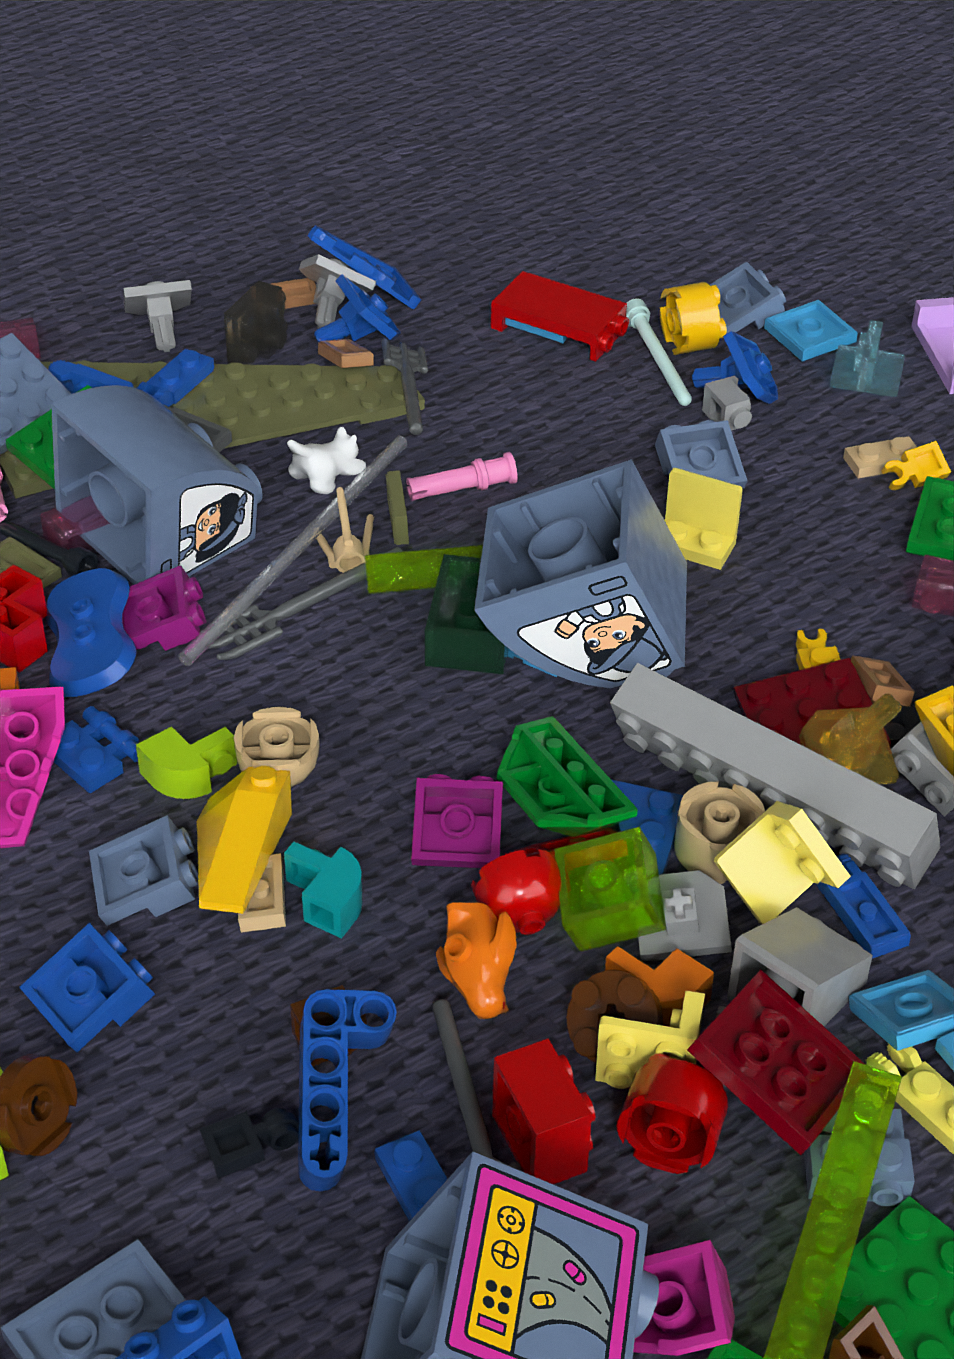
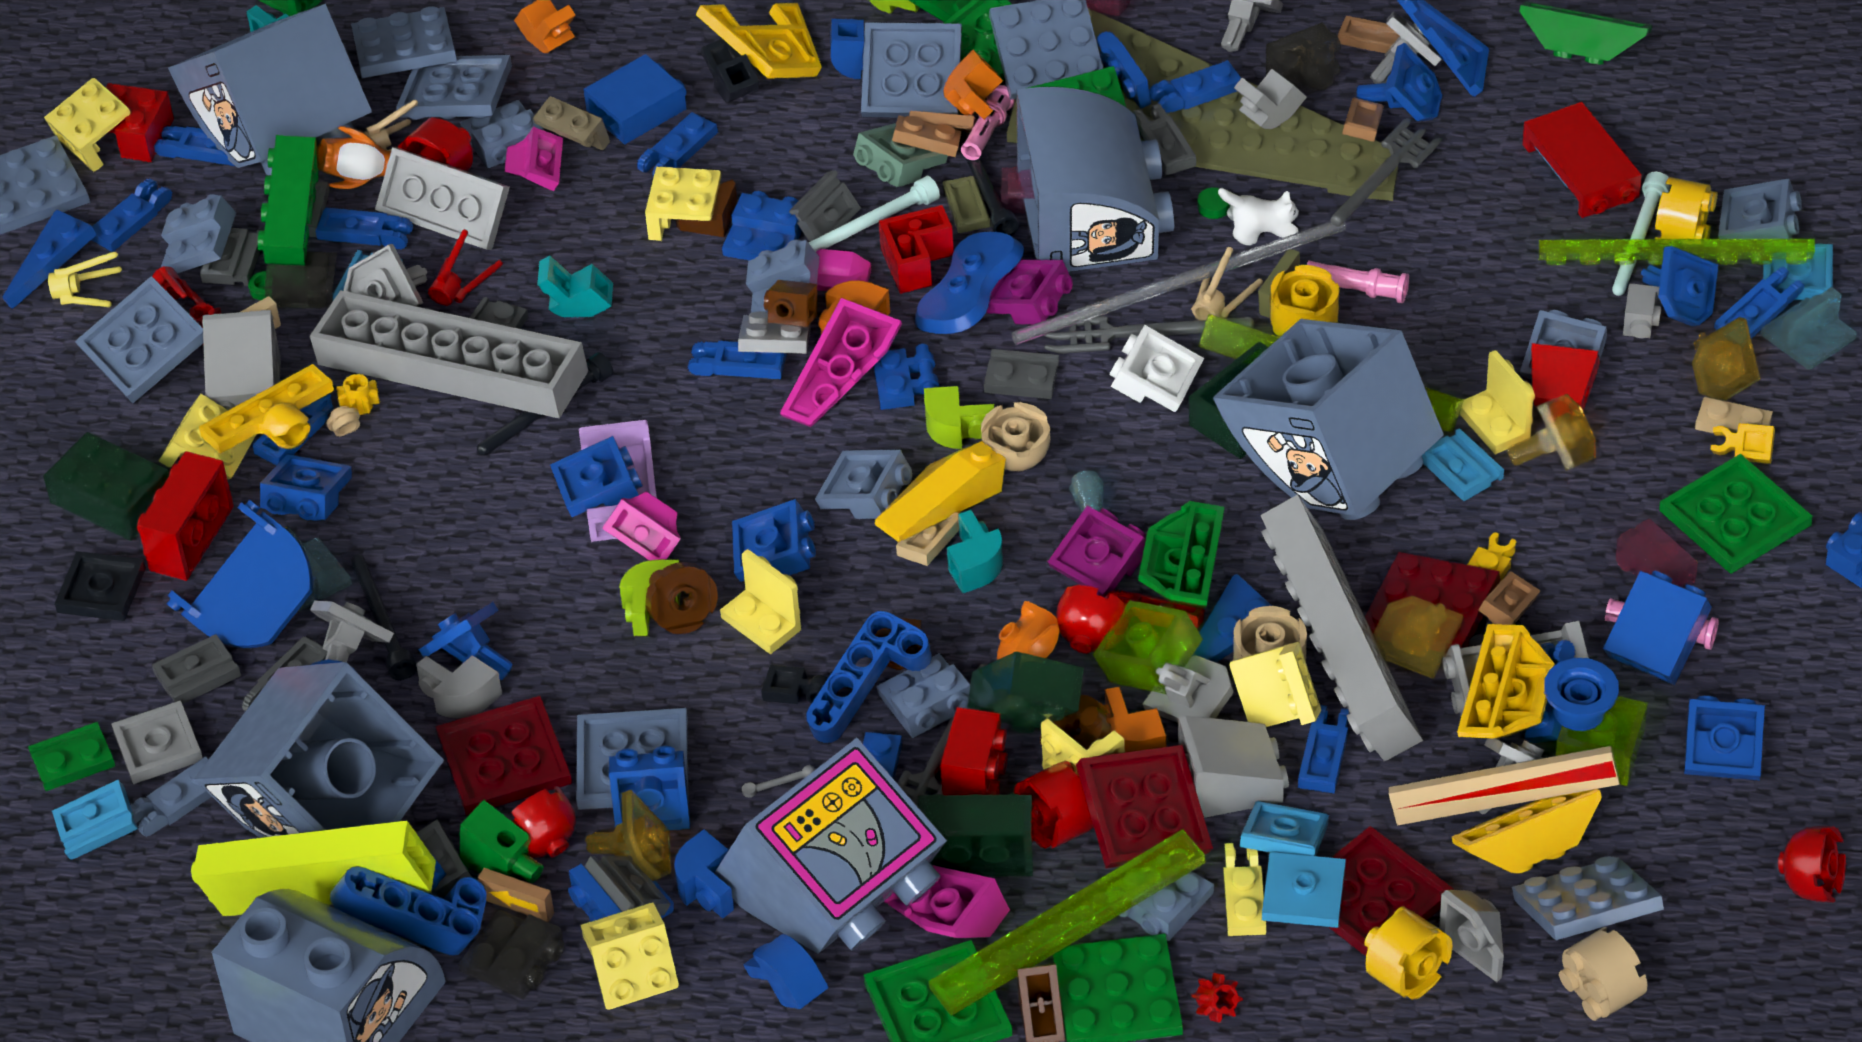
camera: 40 degrees right, 5 degrees up
(138, 1060) = (767, 608): none -> light yellow bracket
(214, 692) = (1021, 373): none -> dark grey plate
(257, 360) = (1271, 101): none -> light grey brick
(269, 469) = (1211, 204): none -> green tile
(289, 1298) = (750, 789): none -> light grey hinge
(351, 627) = (1155, 369): none -> white plate
(391, 772) = (1087, 490): none -> clear light blue cone
(412, 1070) = (925, 696): none -> sand blue plate
(442, 511) = (1303, 295): none -> yellow brick
(470, 226) = (1581, 33): none -> green wedge
(550, 998) = (1026, 690): none -> clear green brick
(648, 1176) = (983, 832): none -> clear green brick
(705, 349) = (1723, 250): none -> clear neon green plate
(717, 588) = (1462, 465): none -> dark azure plate
(735, 464) = (1563, 372): none -> red torso
(771, 527) = (1564, 431): none -> clear yellow piece
(816, 366) = (1762, 302): none -> blue hinge
(836, 410) = (1725, 361): none -> clear yellow piece

